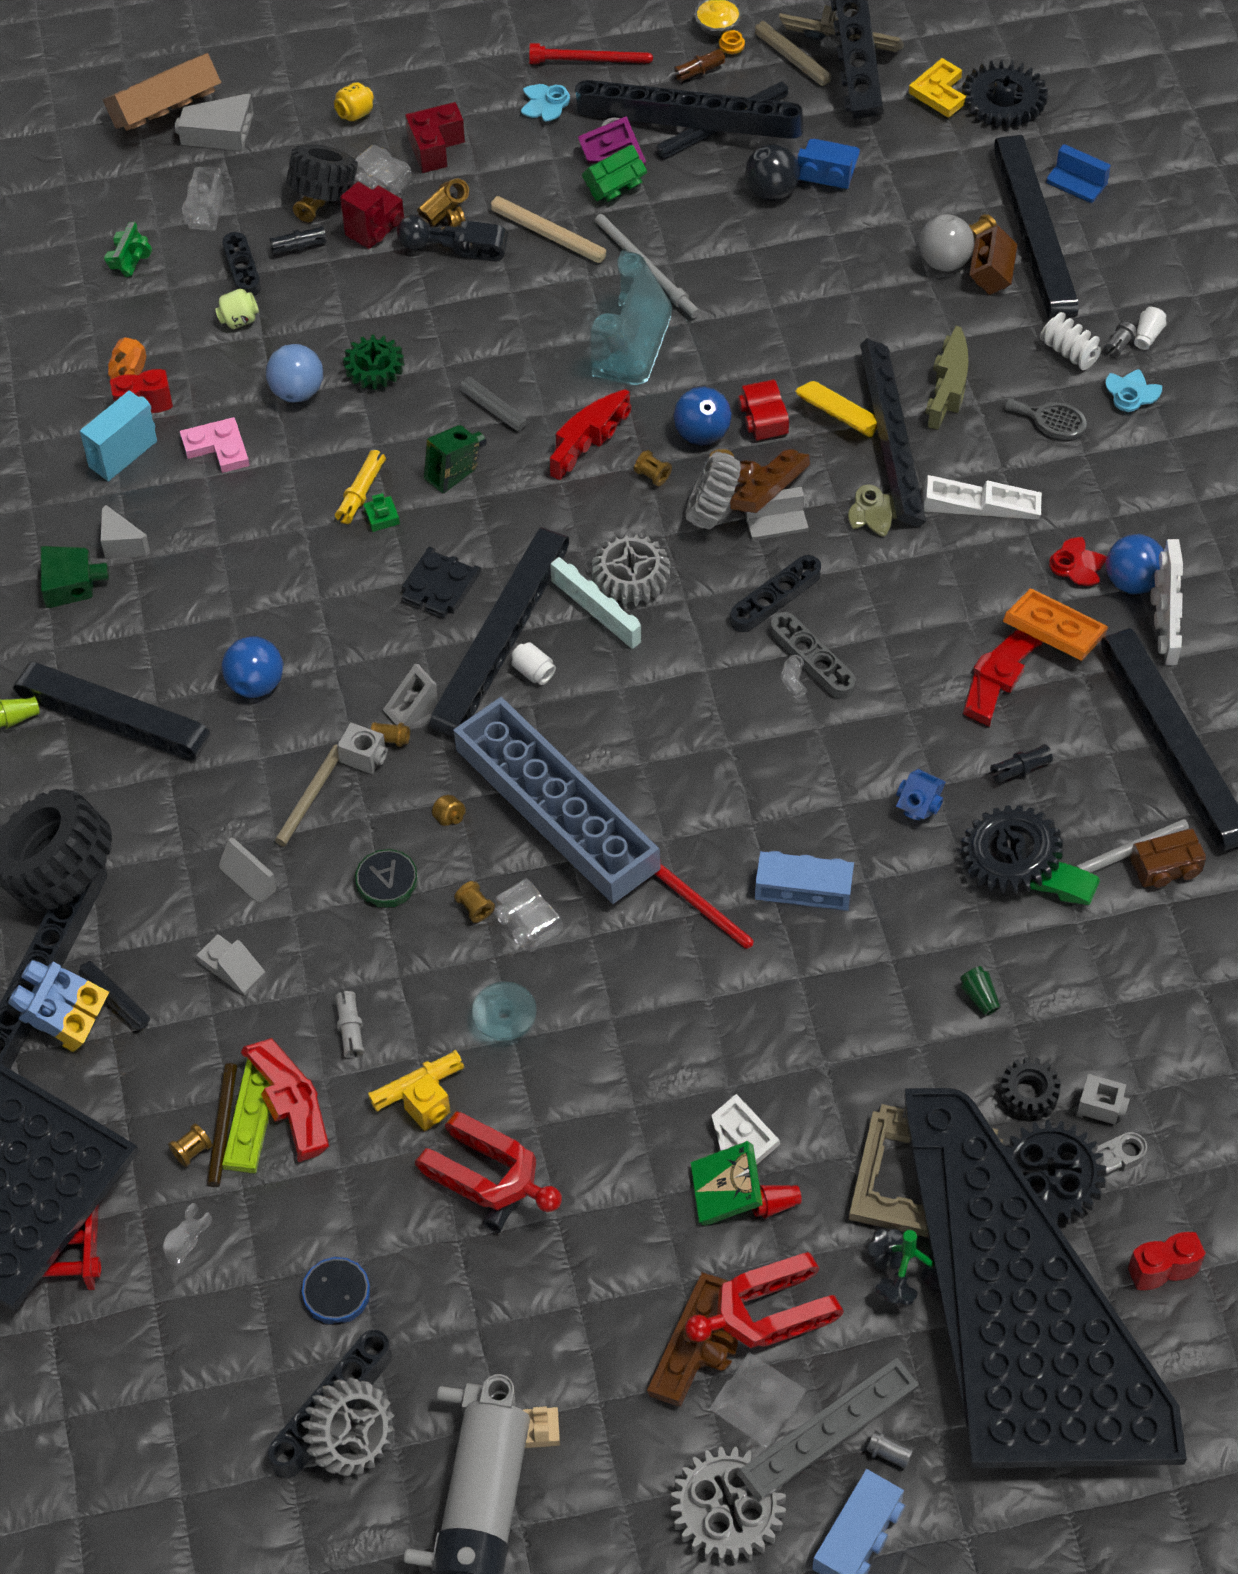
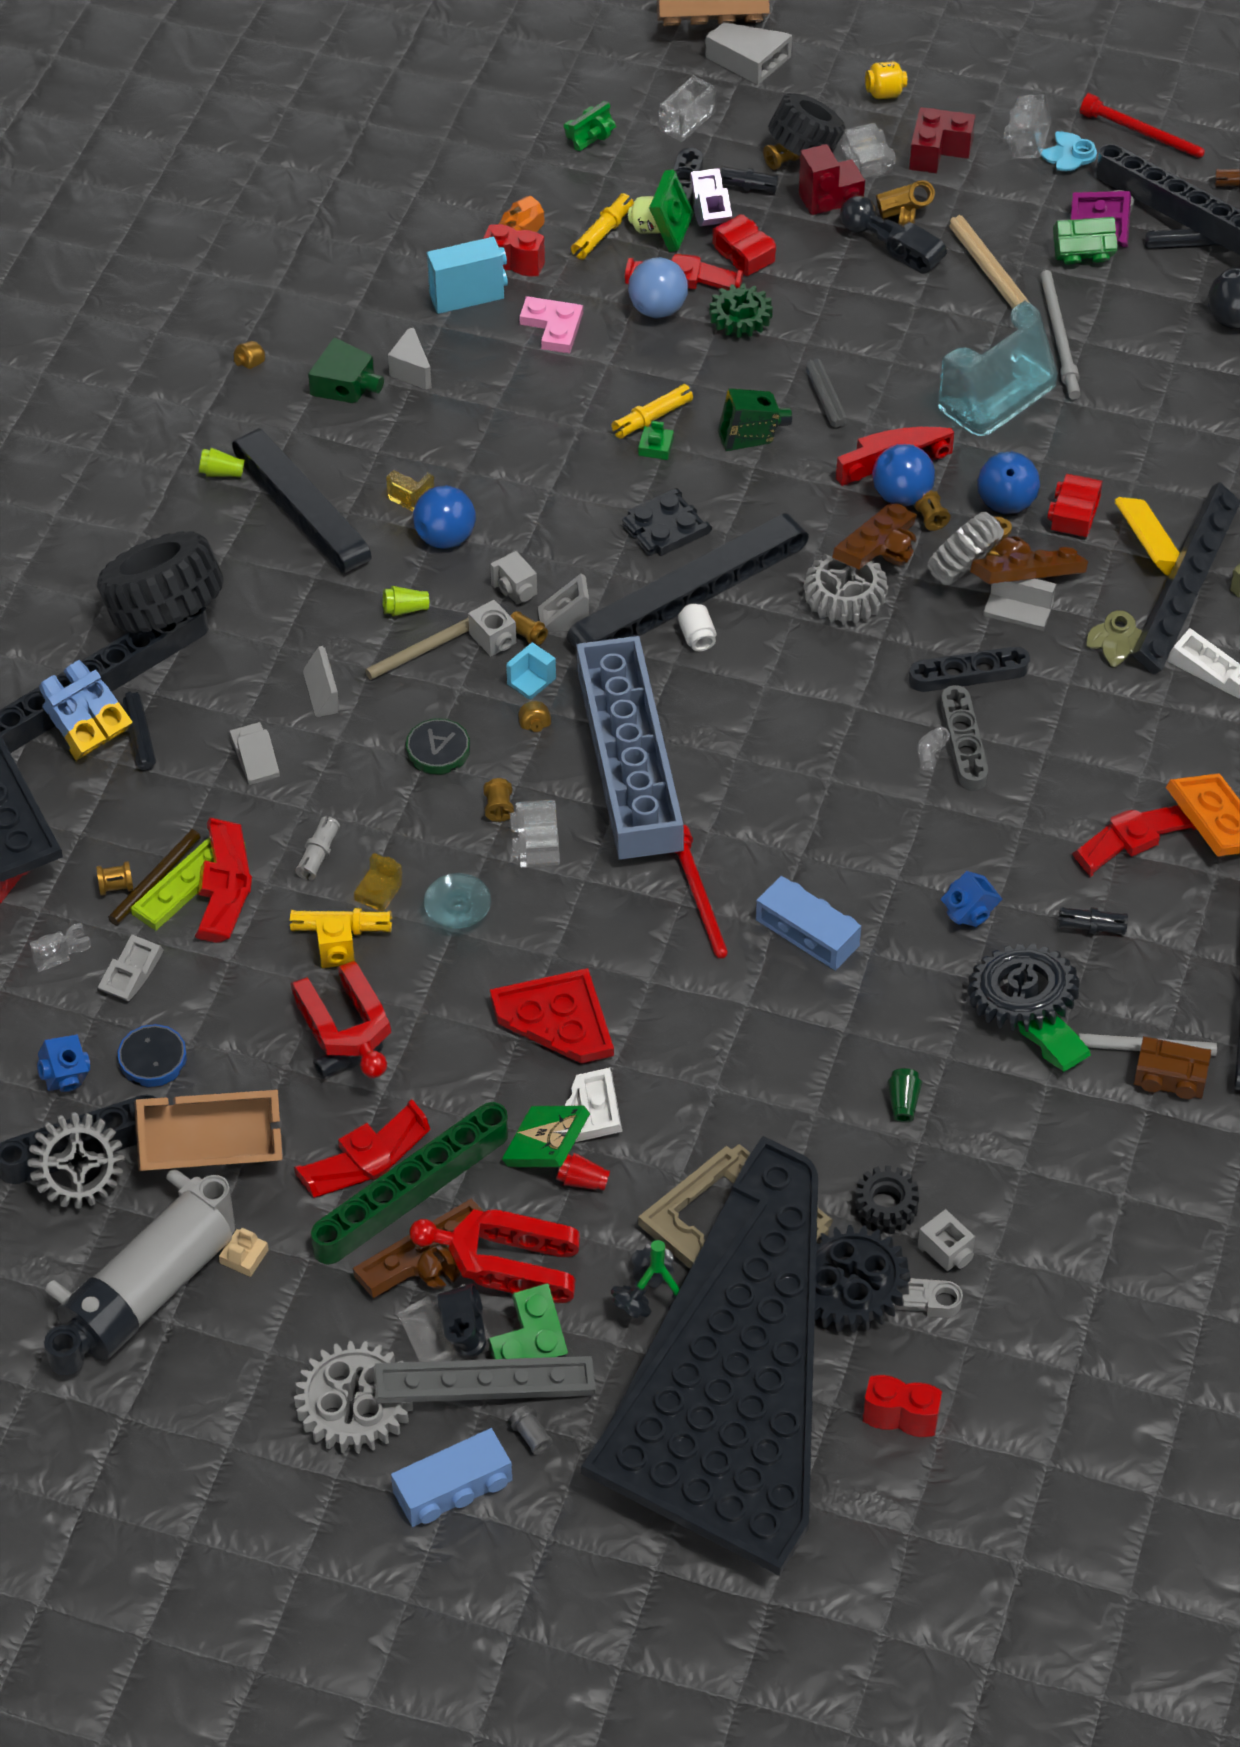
camera: 30 degrees right, 5 degrees down
(202, 658) = (405, 490): none -> clear yellow bracket
(203, 328) = (609, 219): none -> yellow pin
(257, 297) = (671, 210): none -> green tile
(261, 1220) = (132, 968): none -> light grey slope
(264, 761) = (403, 600): none -> lime cone
(269, 1342) = (63, 1063): none -> blue brick
(282, 276) = (710, 198): none -> brick
(315, 341) = (697, 272): none -> red plate
(335, 301) = (744, 244): none -> red brick
(349, 693) = (514, 577): none -> light grey brick
(421, 771) = (531, 671): none -> medium azure panel
(424, 1028) = (379, 883): none -> clear yellow bracket
(446, 1337) = (207, 1130): none -> medium nougat piece
(501, 93) = (1028, 126): none -> clear brick
(582, 1279) = (365, 1153): none -> red plate
(596, 603) = (791, 597): light aqua plate -> none
(614, 448) = (903, 474): none -> blue piece
(633, 513) = (881, 535): none -> reddish brown plate
(638, 1300) = (404, 1196): none -> dark green beam
(656, 1068) = (556, 1013): none -> red plate
(770, 1381) = (463, 1319): none -> black piece
(841, 1361) = (539, 1331): none -> green plate

